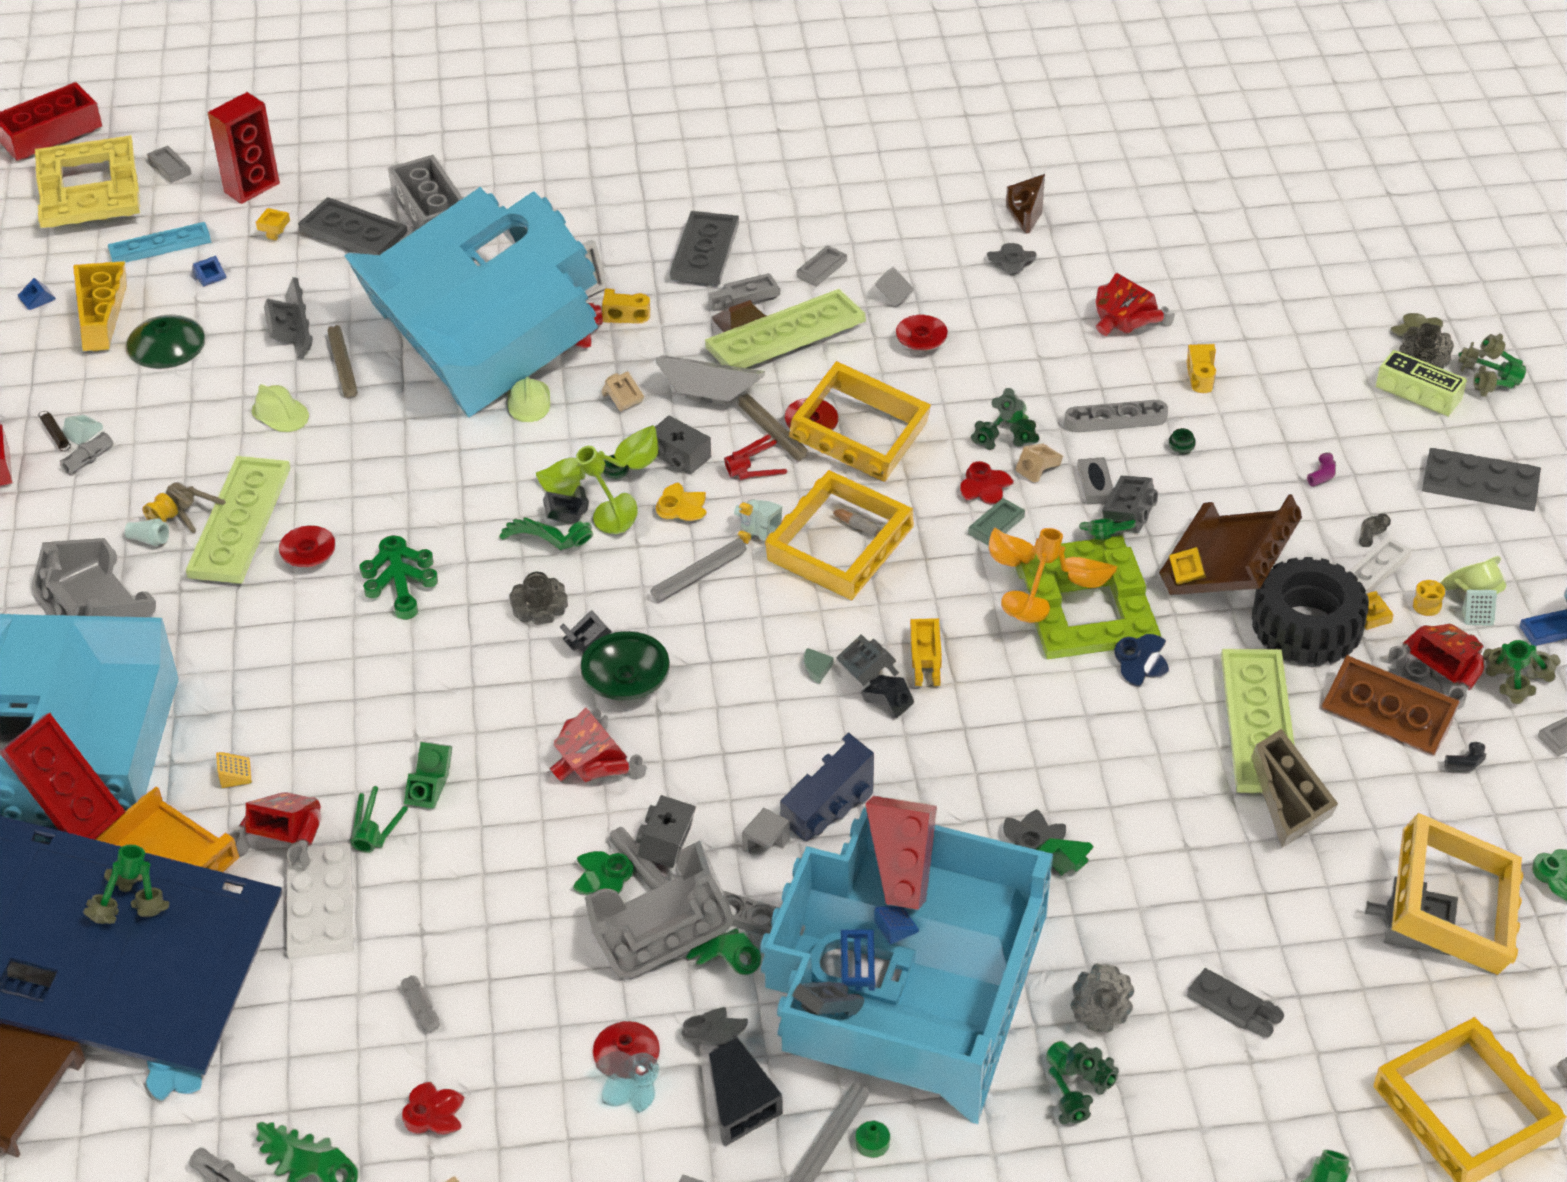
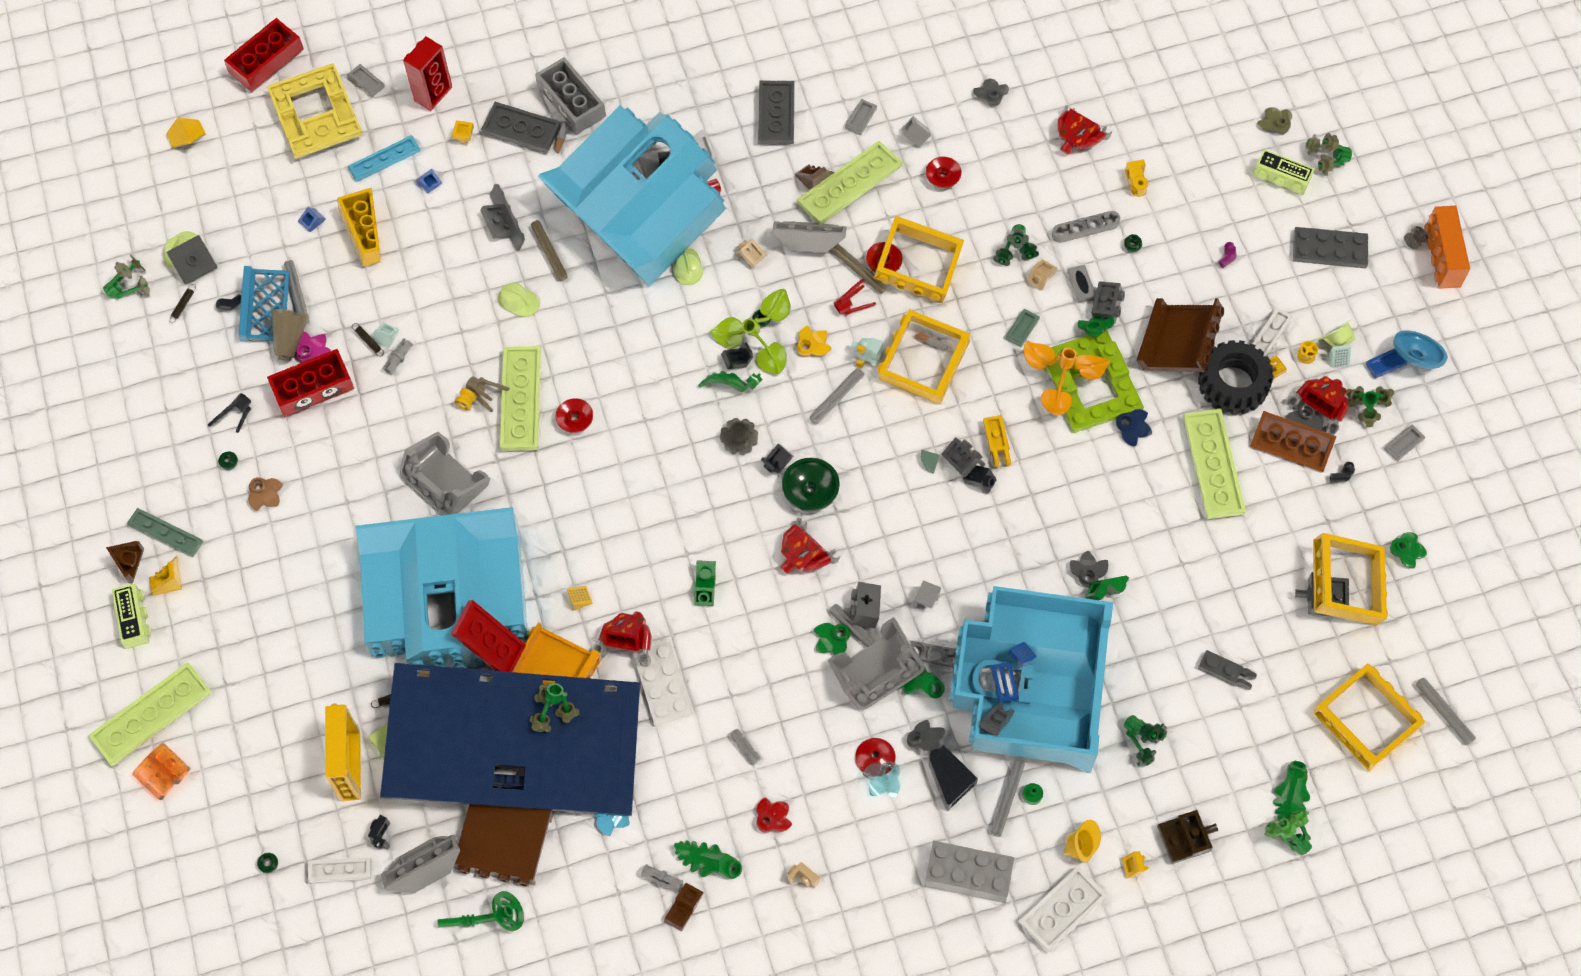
camera: 10 degrees left, 20 degrees up
(148, 531) = (463, 418): light aqua cone -> none
(165, 341) = (418, 256): dark green dish -> none
(366, 833) = (679, 633): green plant -> none
(393, 549) = (639, 426): green plant -> none
(625, 307) = (734, 176): yellow leg -> none
(682, 445) = (803, 294): dark grey brick -> none
(739, 291) = (813, 150): light grey hinge -> none
(831, 791) = (960, 560): dark blue wedge -> none
(903, 848) = (1022, 610): wedge -> none
(984, 483) = (1011, 299): red plate -> none
(1026, 201) = (993, 42): reddish brown slope -> none
(1102, 997) = (1150, 683): clear smoke plant -> none
(1187, 566) = (1155, 355): yellow tile -> none
(1290, 788) = (1242, 519): dark tan wedge -> none
(1371, 527) = (1264, 298): clear smoke arm -> none
(1428, 345) = (1284, 132): clear smoke plant -> none

